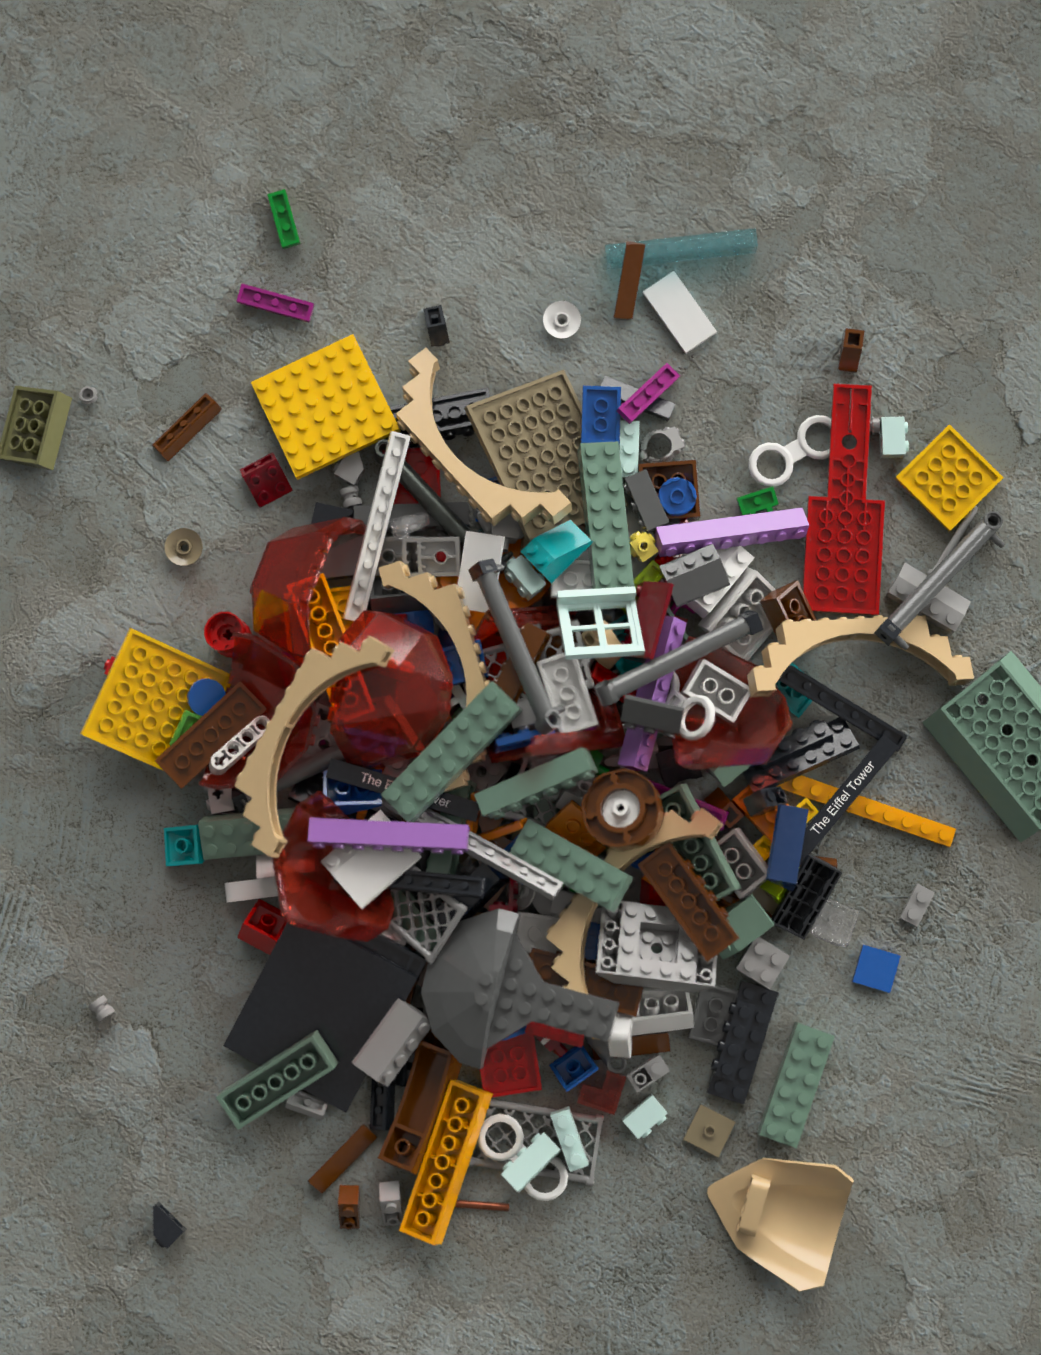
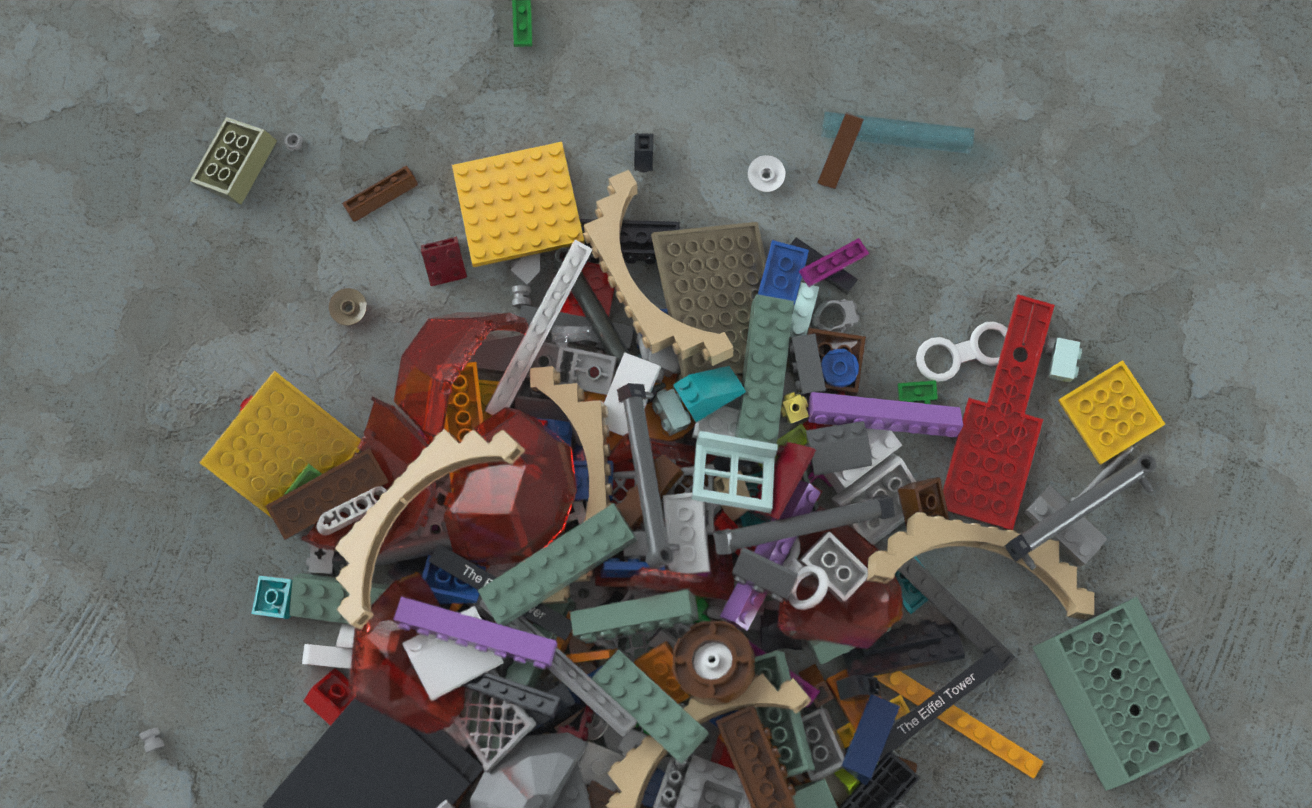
camera: 10 degrees right, 5 degrees down
(204, 695) = (330, 454): blue tile -> none
(220, 629) = (359, 396): red wheel -> none
(275, 303) = (494, 95): magenta plate -> none
(327, 512) = (494, 304): black slope -> none
(679, 312) = (882, 193): white tile -> none
(850, 350) = (1041, 266): reddish brown slope -> none

